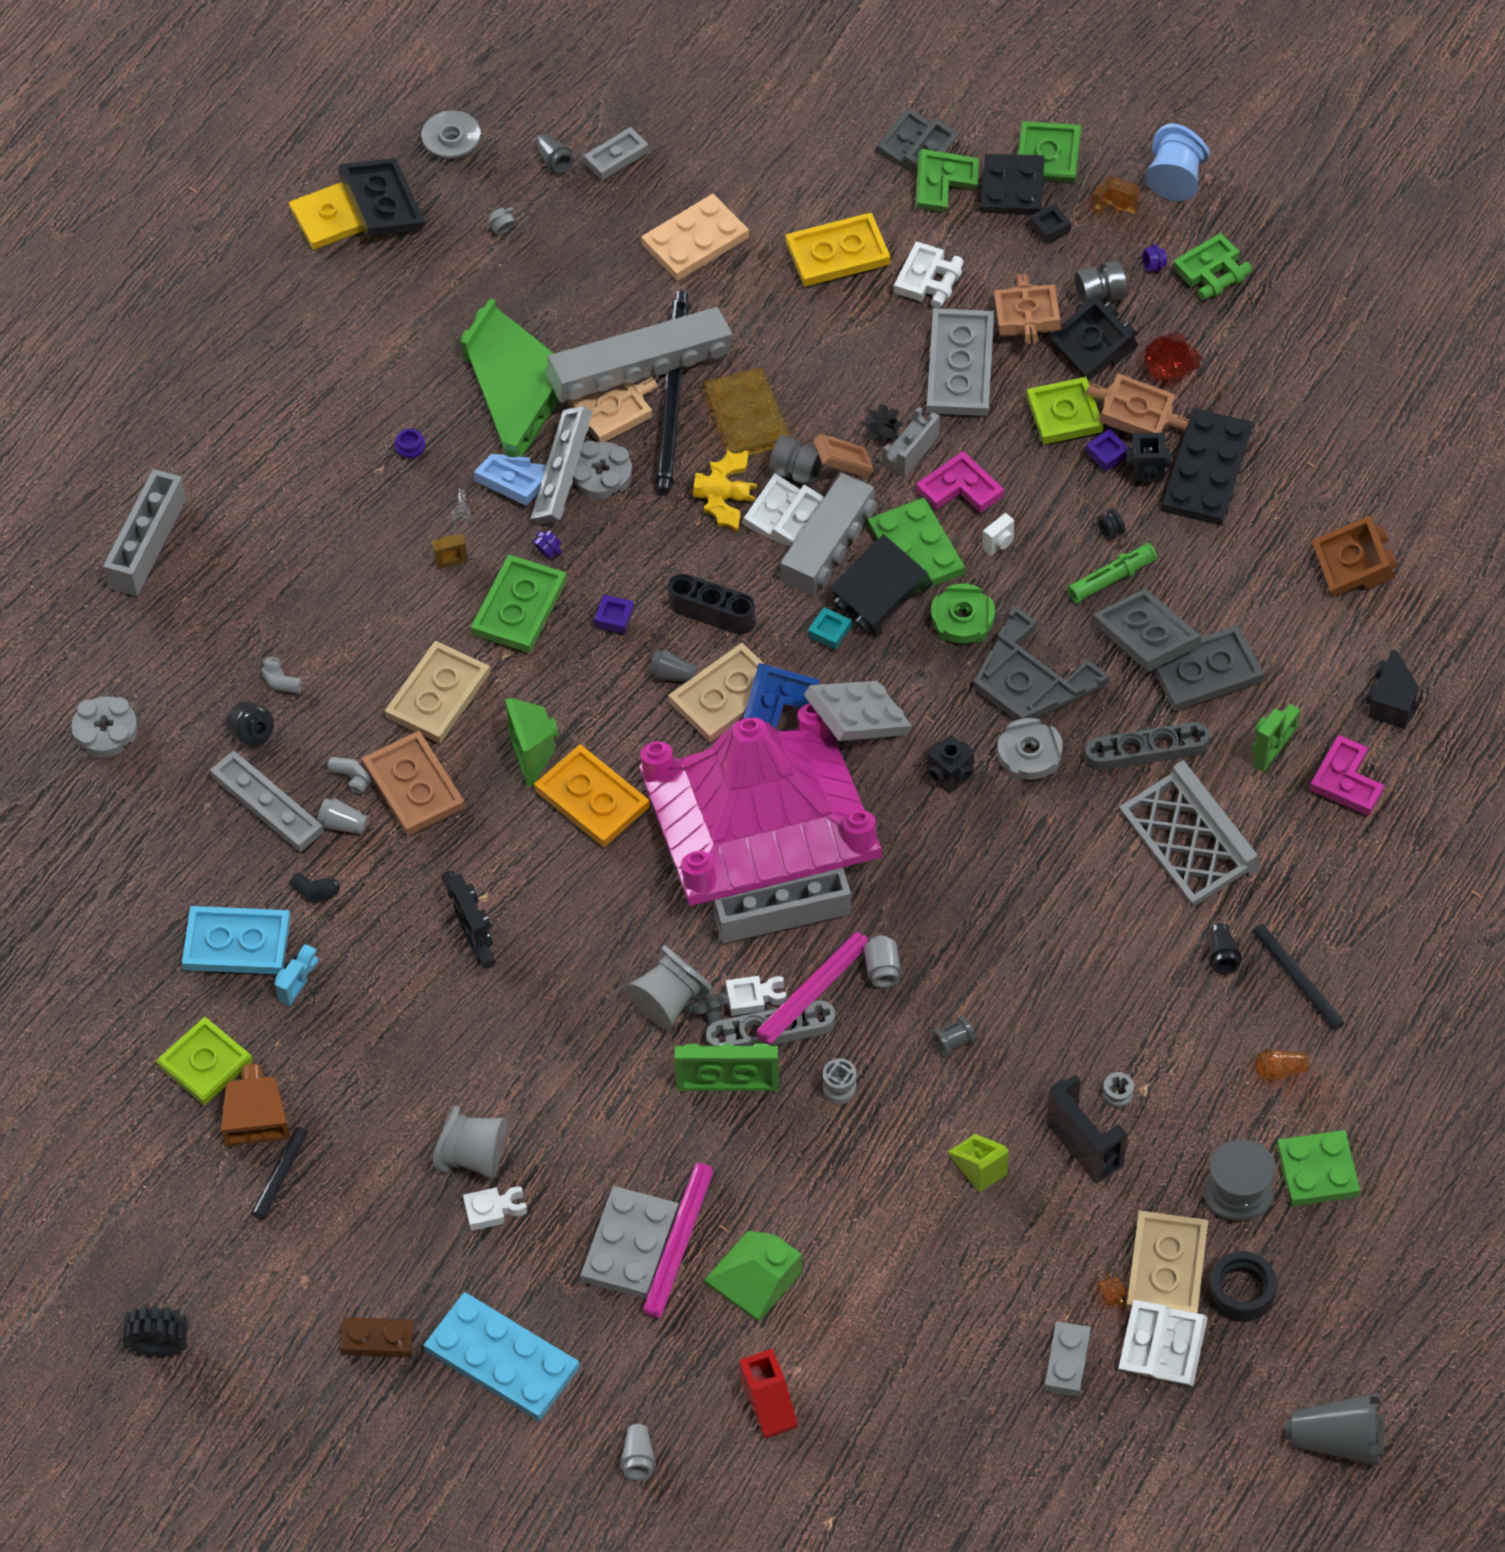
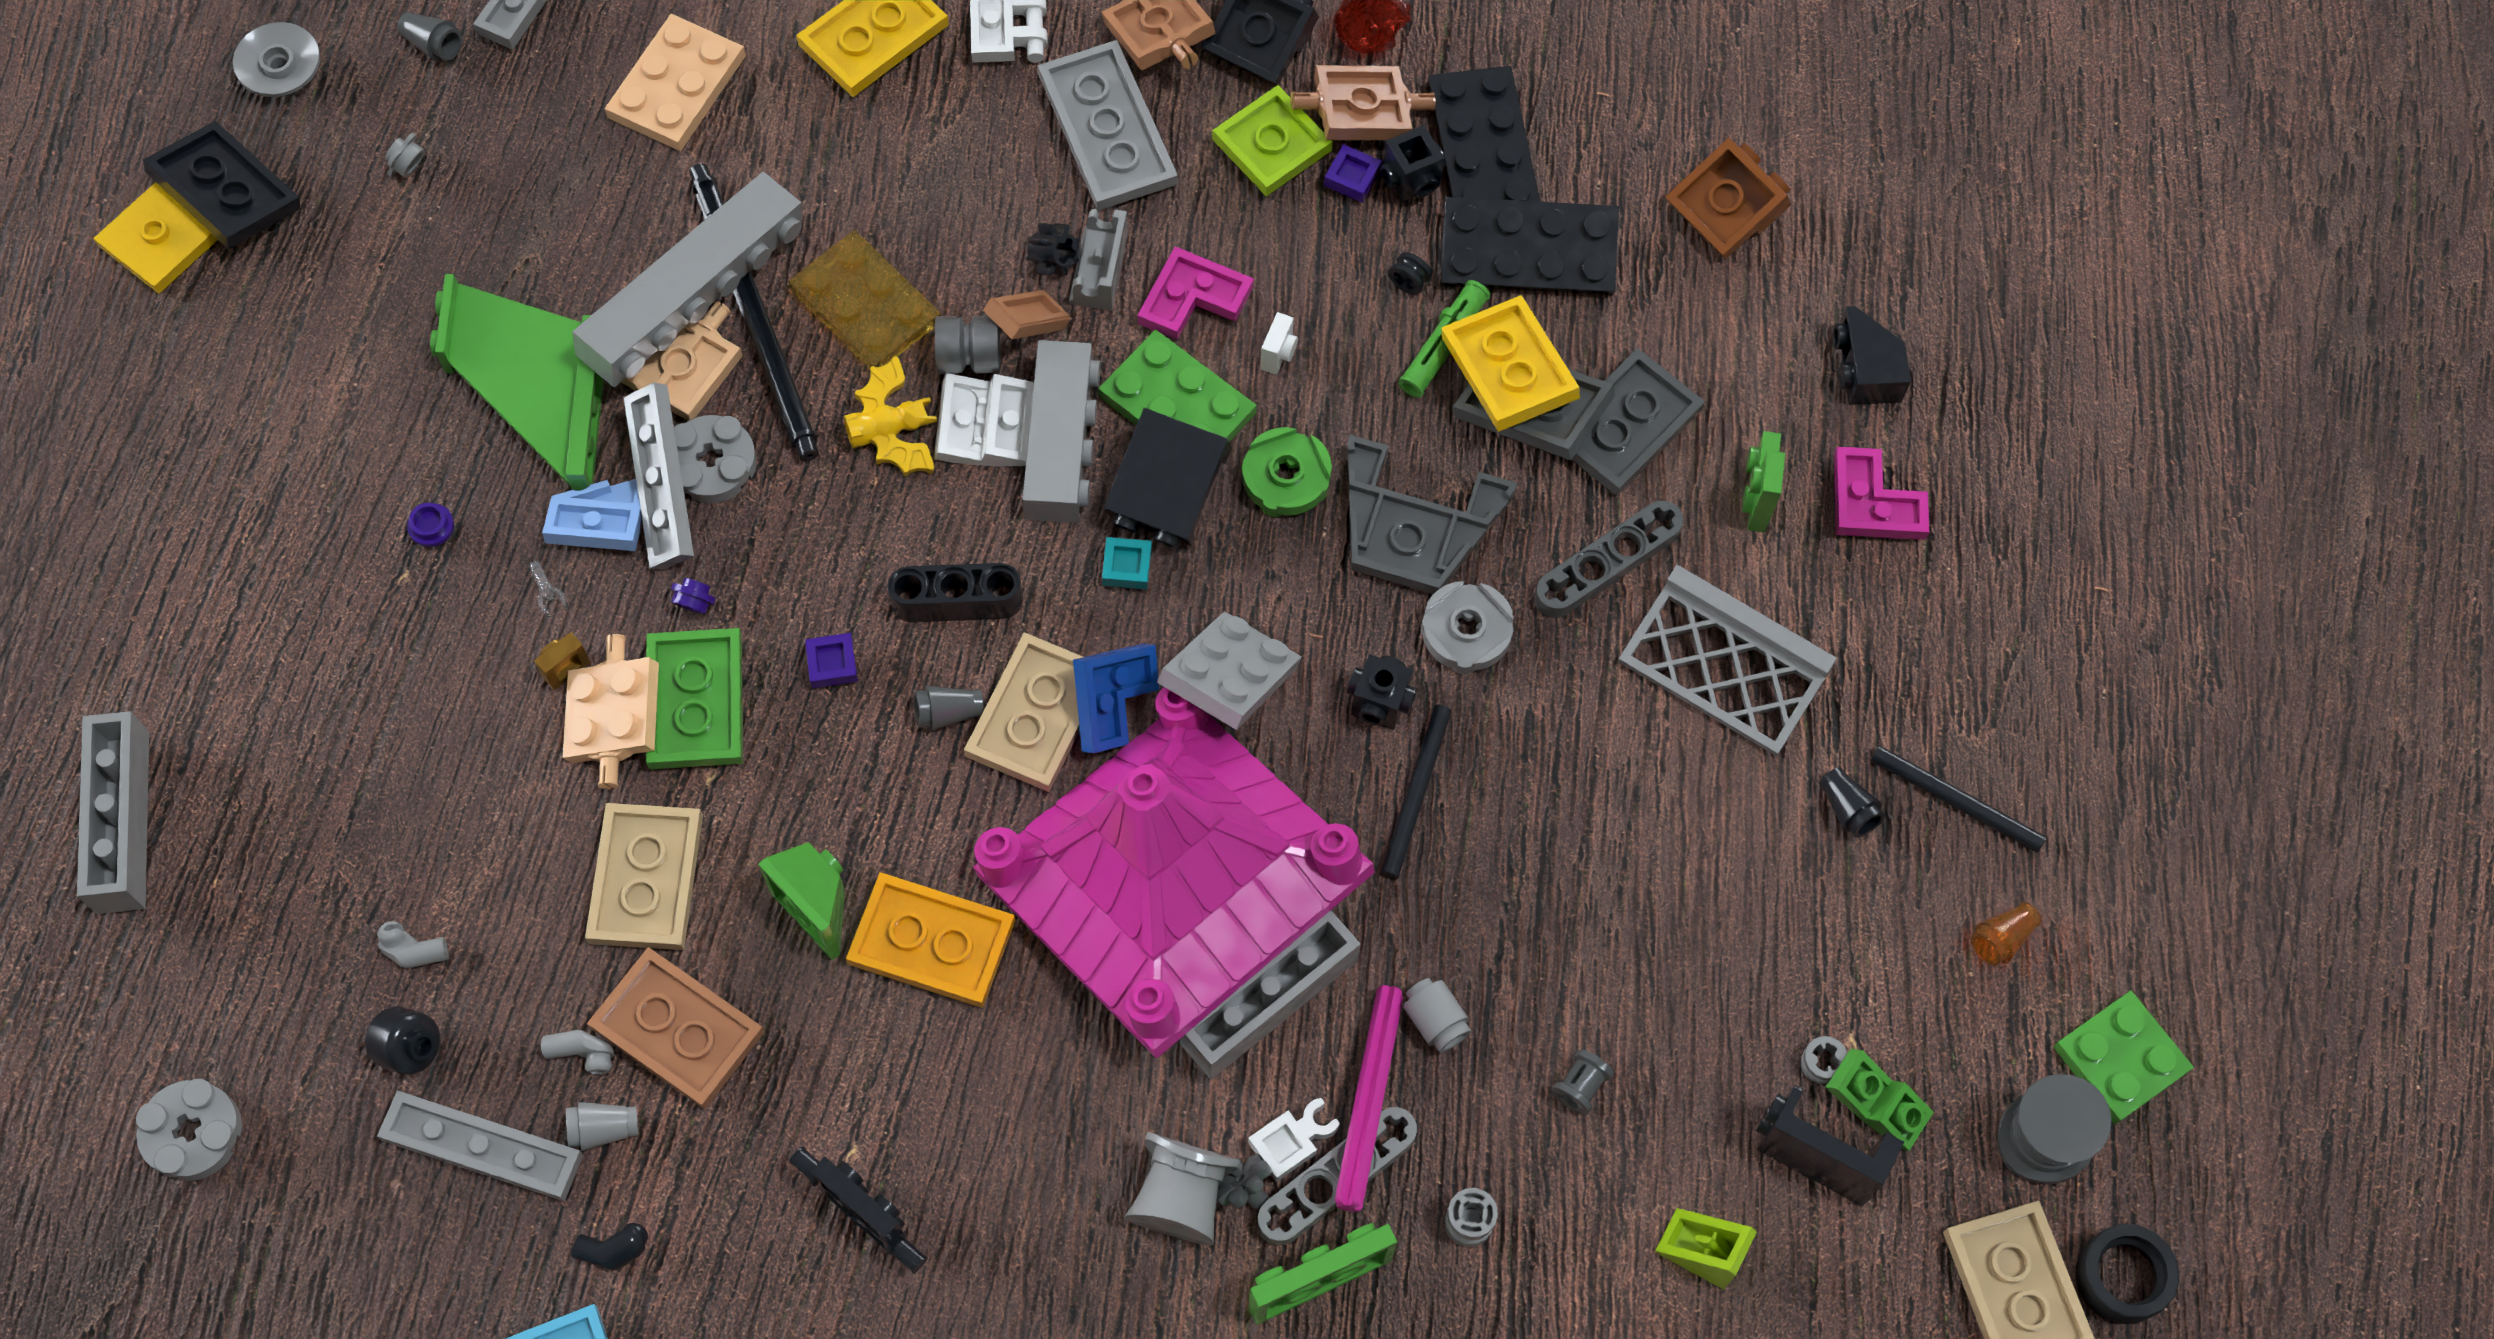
camera: 30 degrees left, 10 degrees up
(464, 590) = (611, 711): none -> light nougat plate
(942, 833) = (1416, 792): none -> black bar
(1140, 598) = (1510, 363): none -> yellow plate
(1143, 1129) = (1879, 1100): none -> bright green slope
(1201, 537) = (1530, 245): none -> black plate

